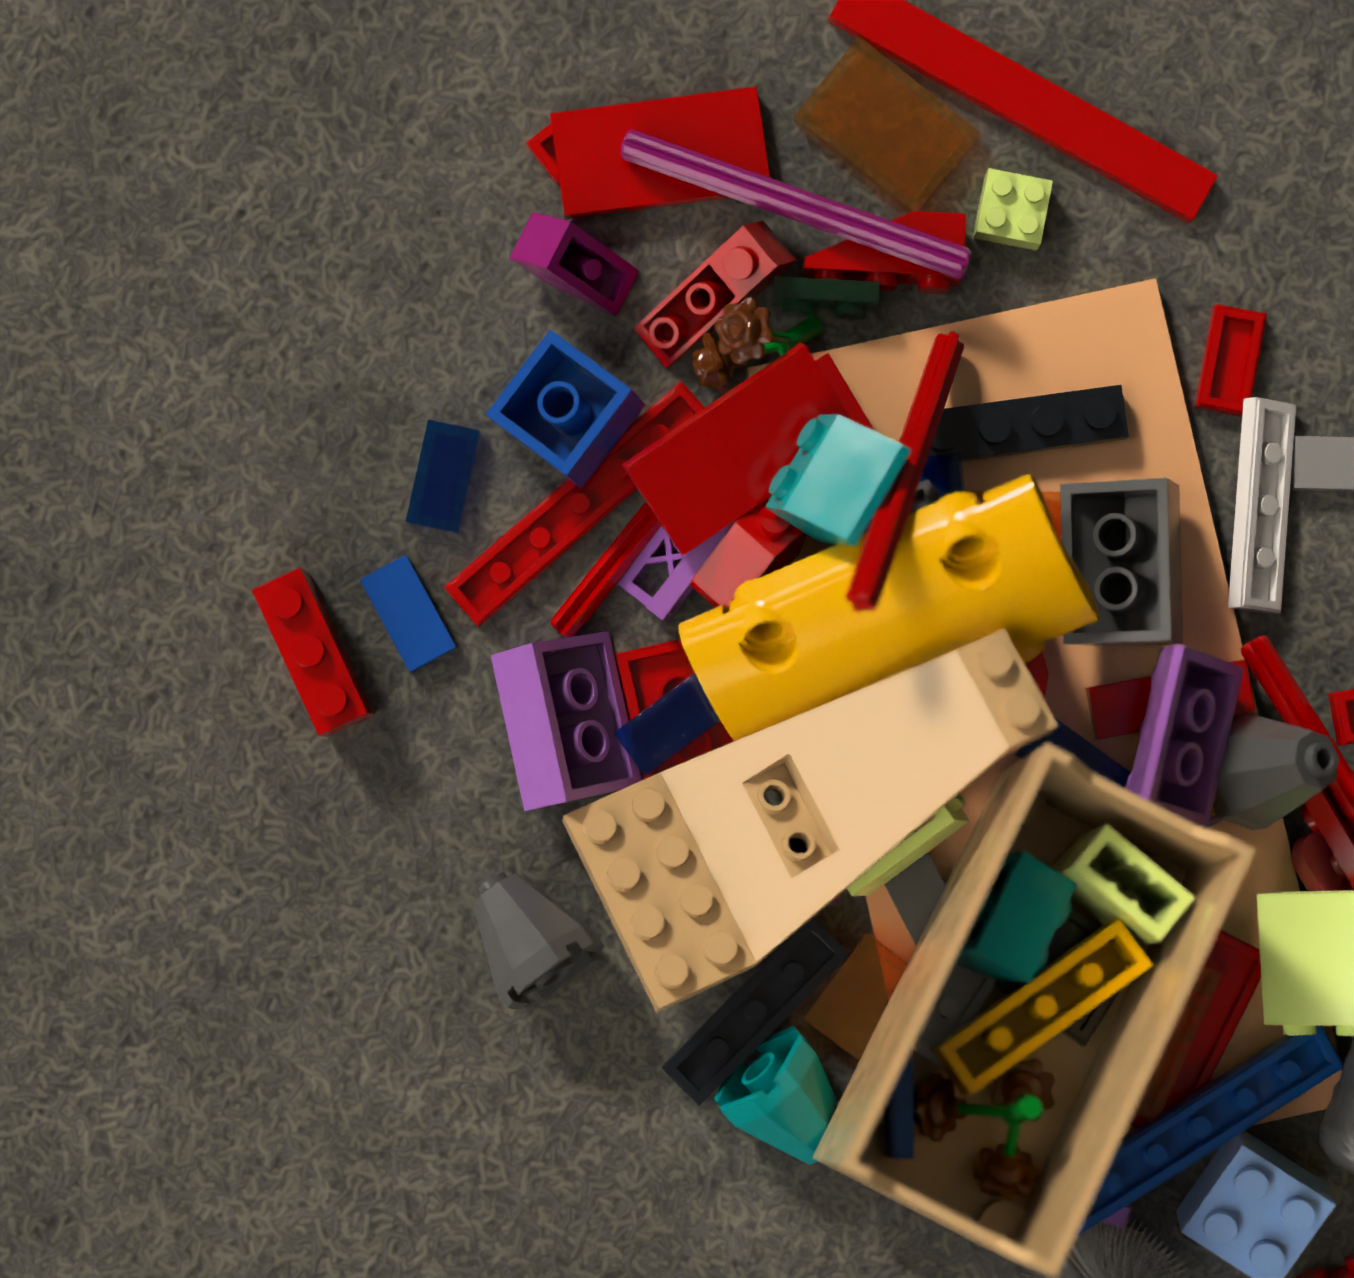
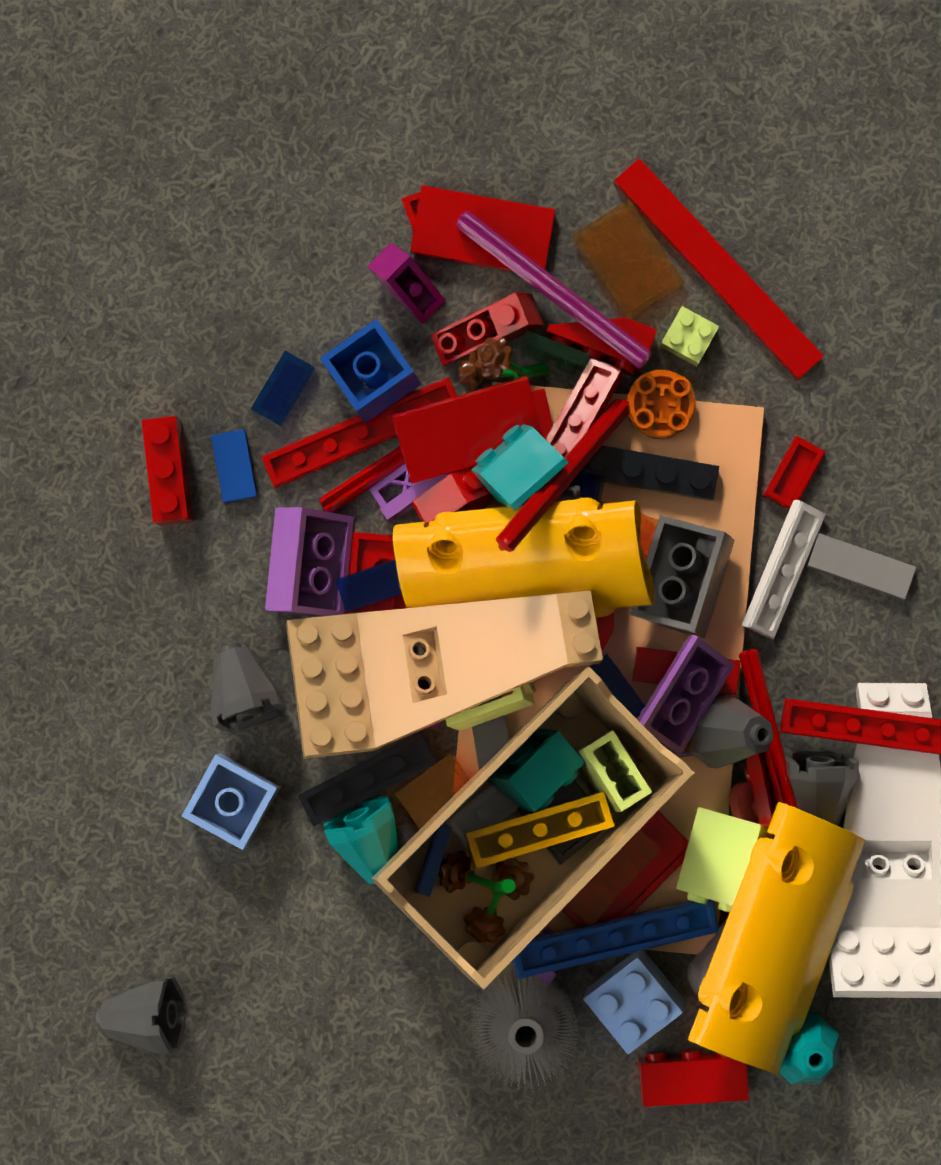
camera: 20 degrees right, 0 degrees up
(566, 1109) = (231, 801): none -> light blue brick
(896, 358) = (584, 405): none -> plate
(1005, 321) = (661, 404): none -> orange tile

